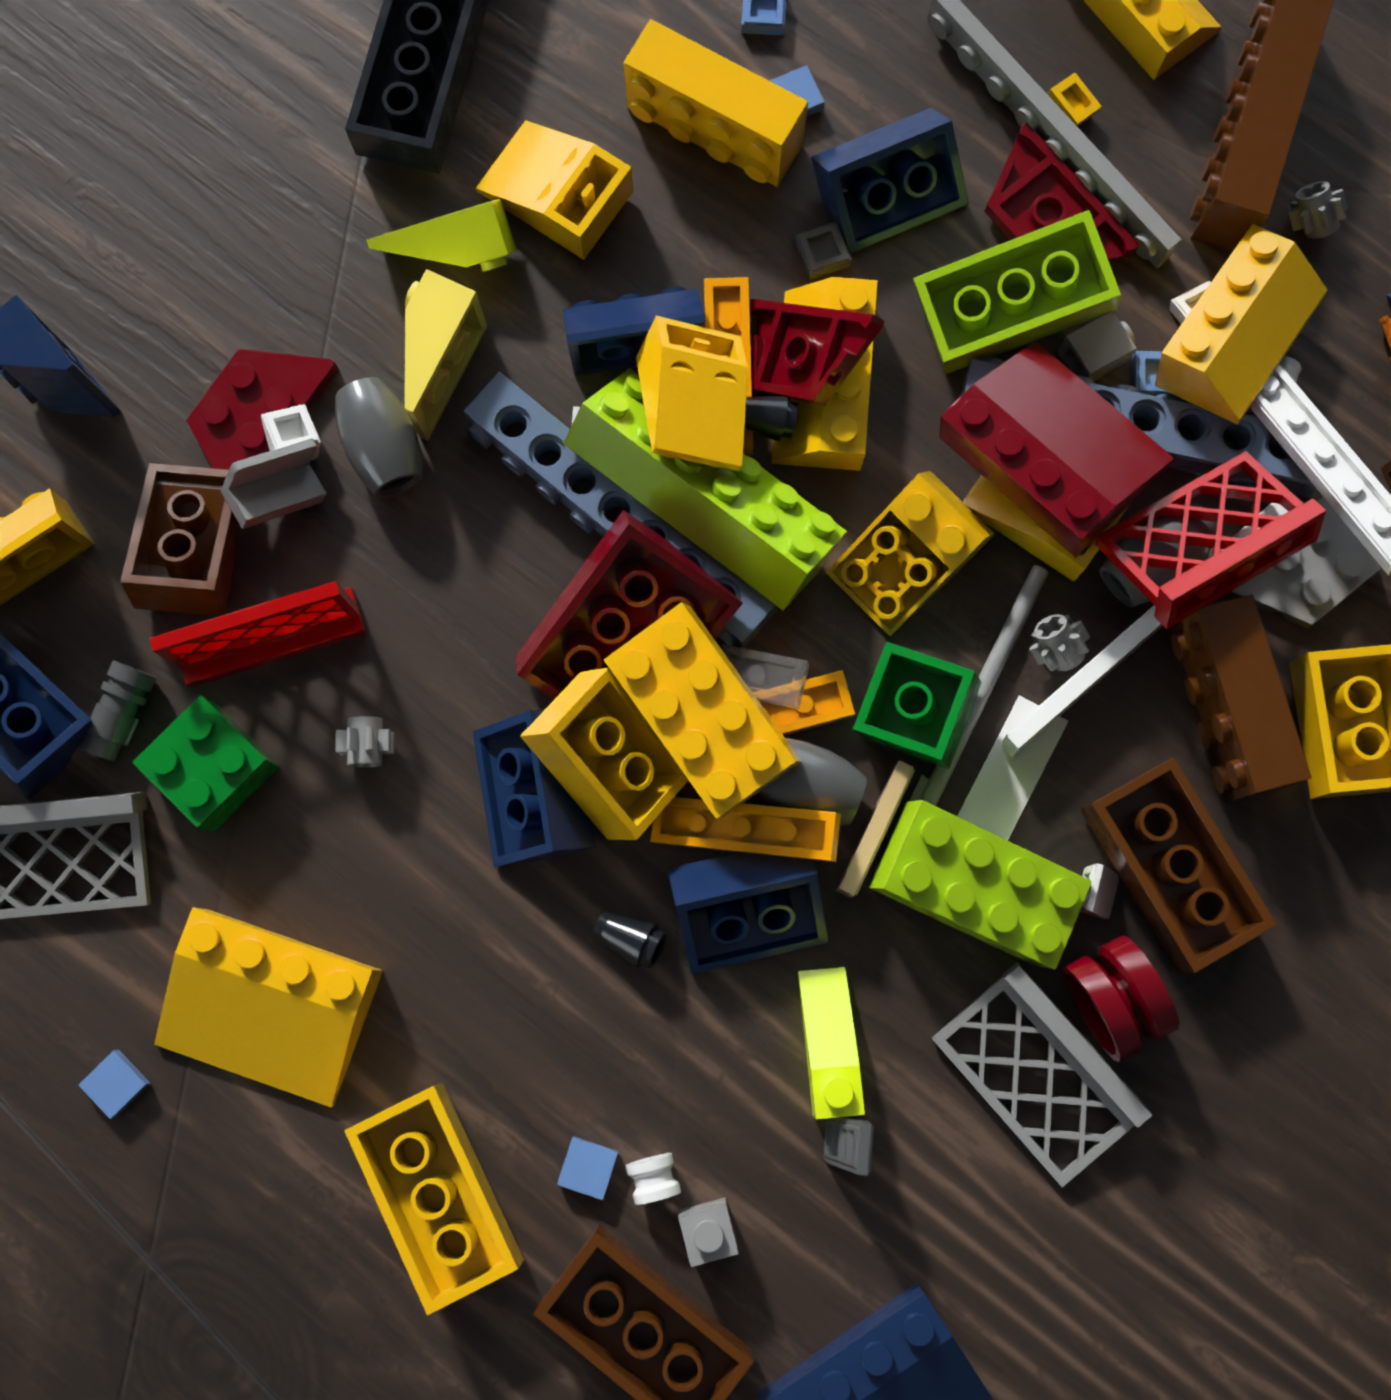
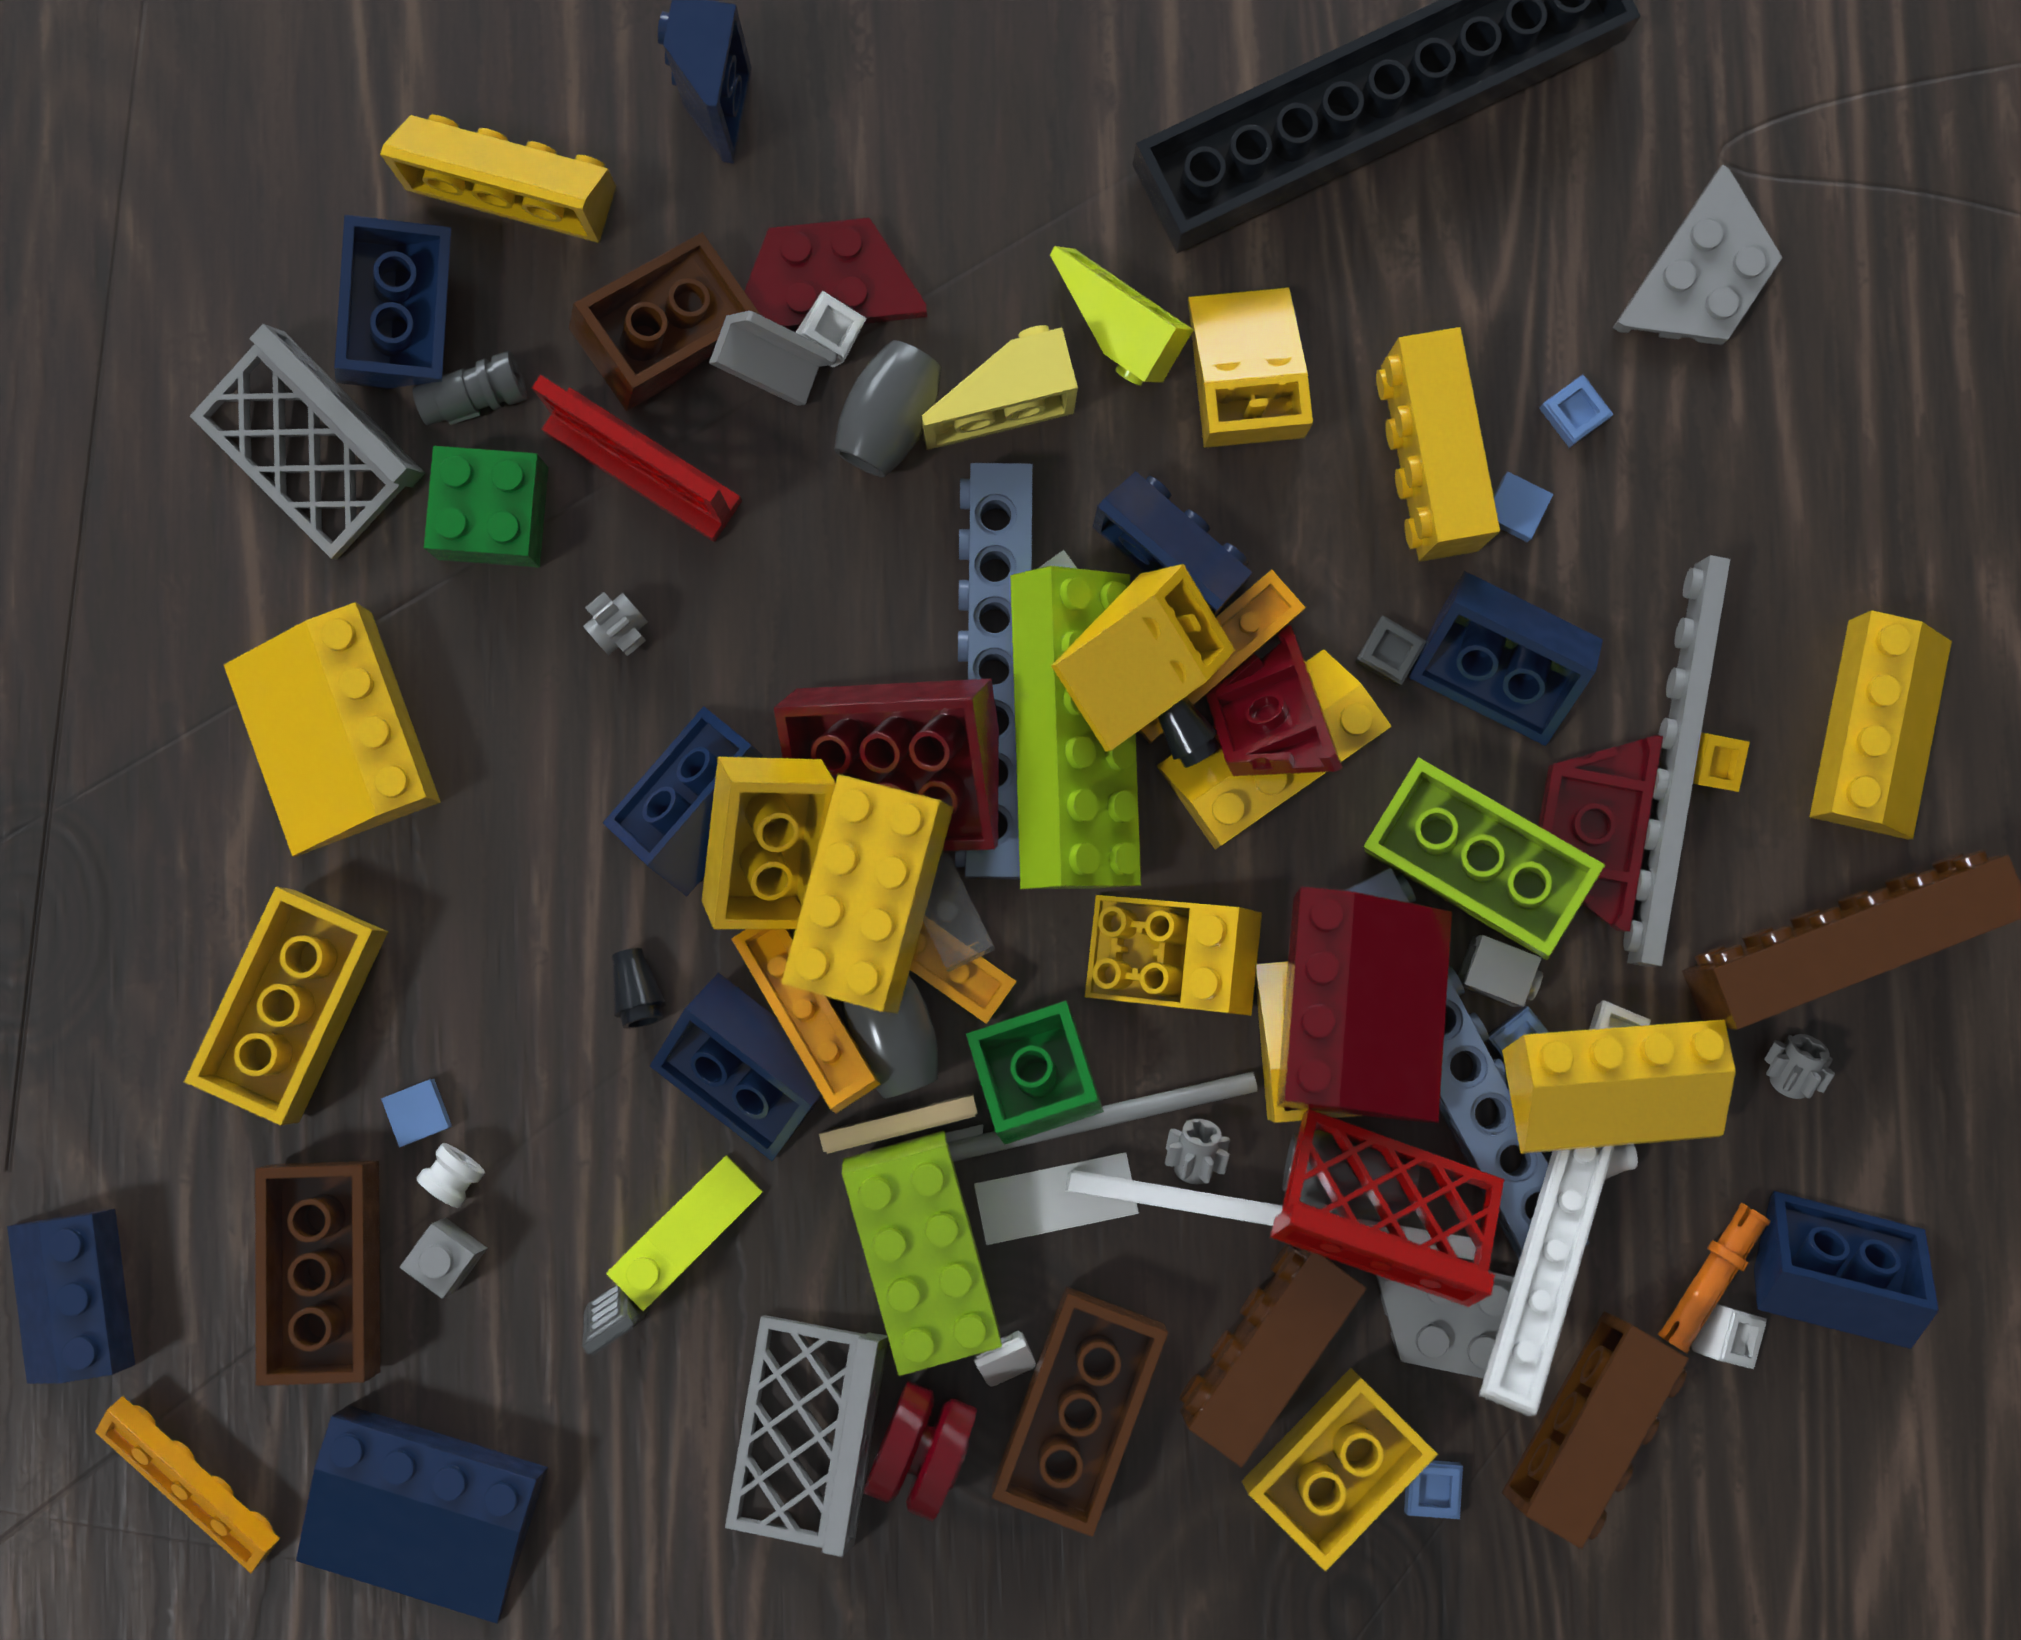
camera: 40 degrees right, 5 degrees up
(114, 1084) = (165, 660): medium blue tile -> none

